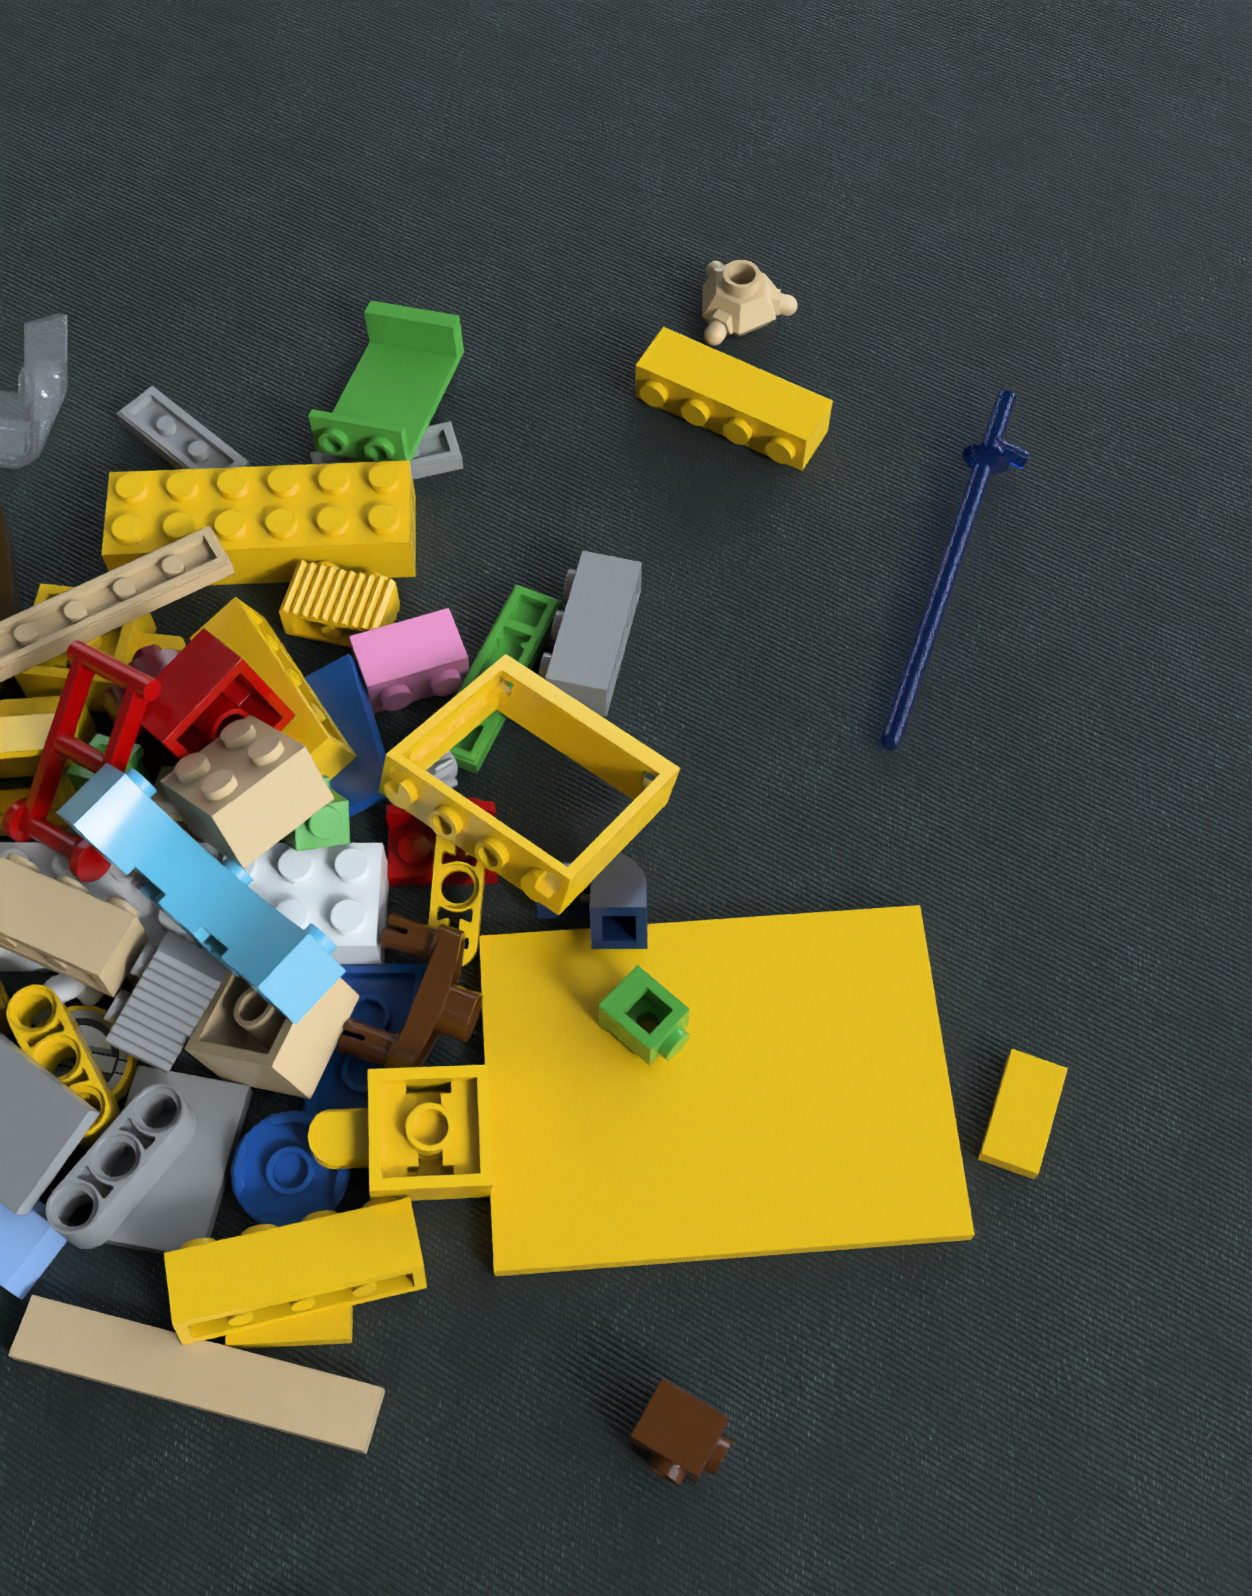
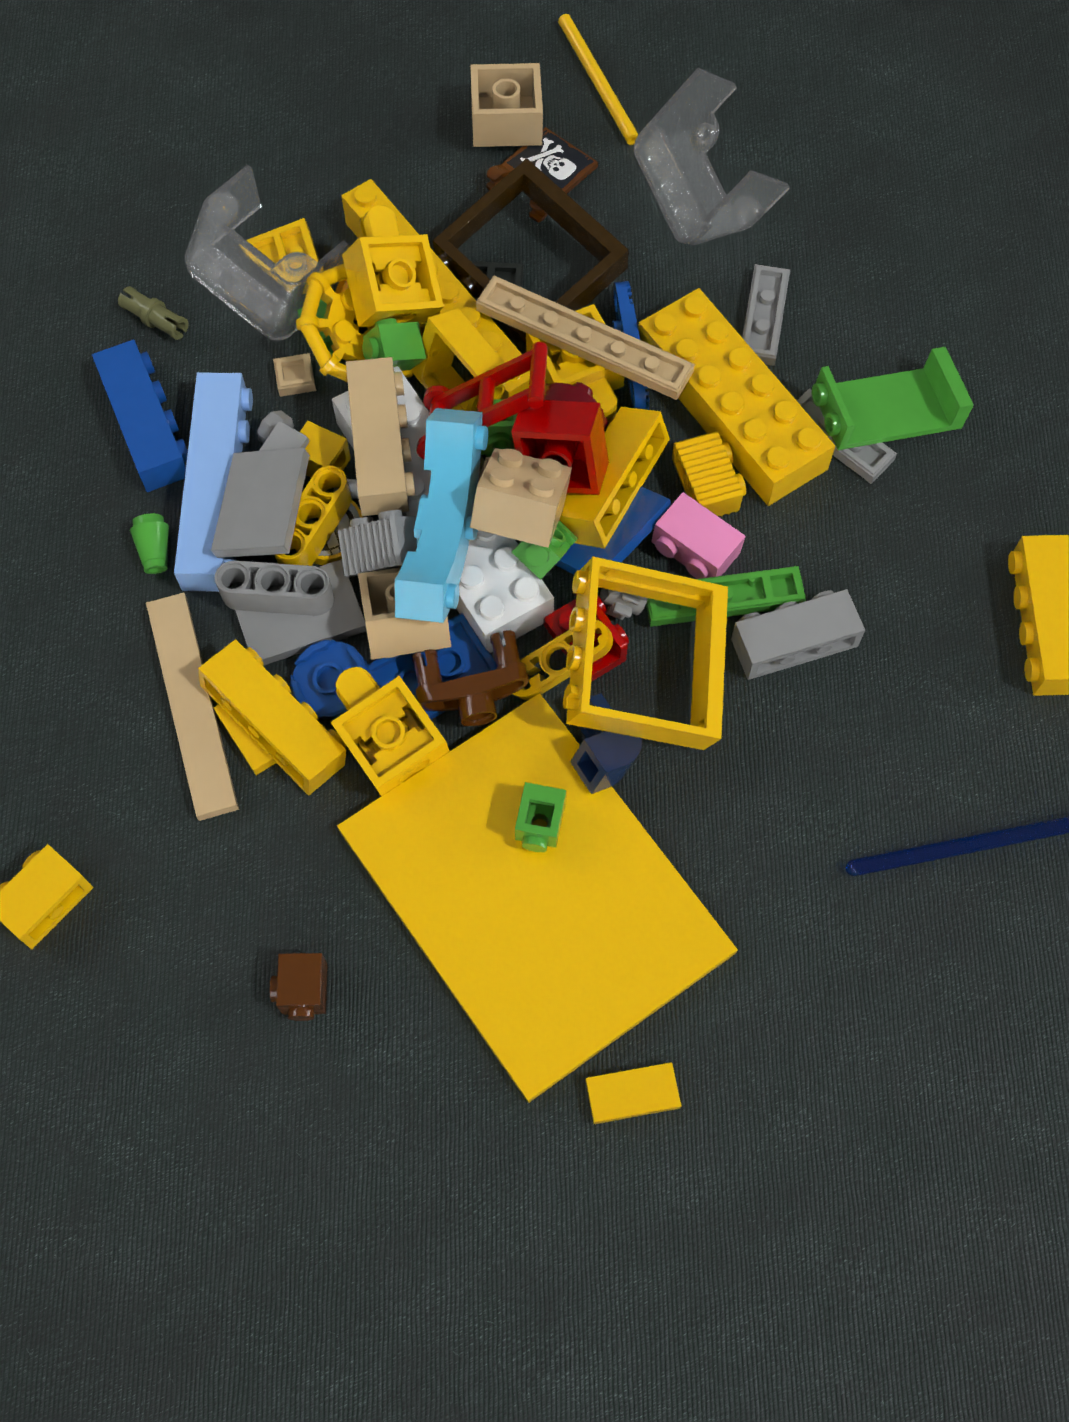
camera: 60 degrees right, 5 degrees up
(76, 568) = (627, 323): none -> blue plate

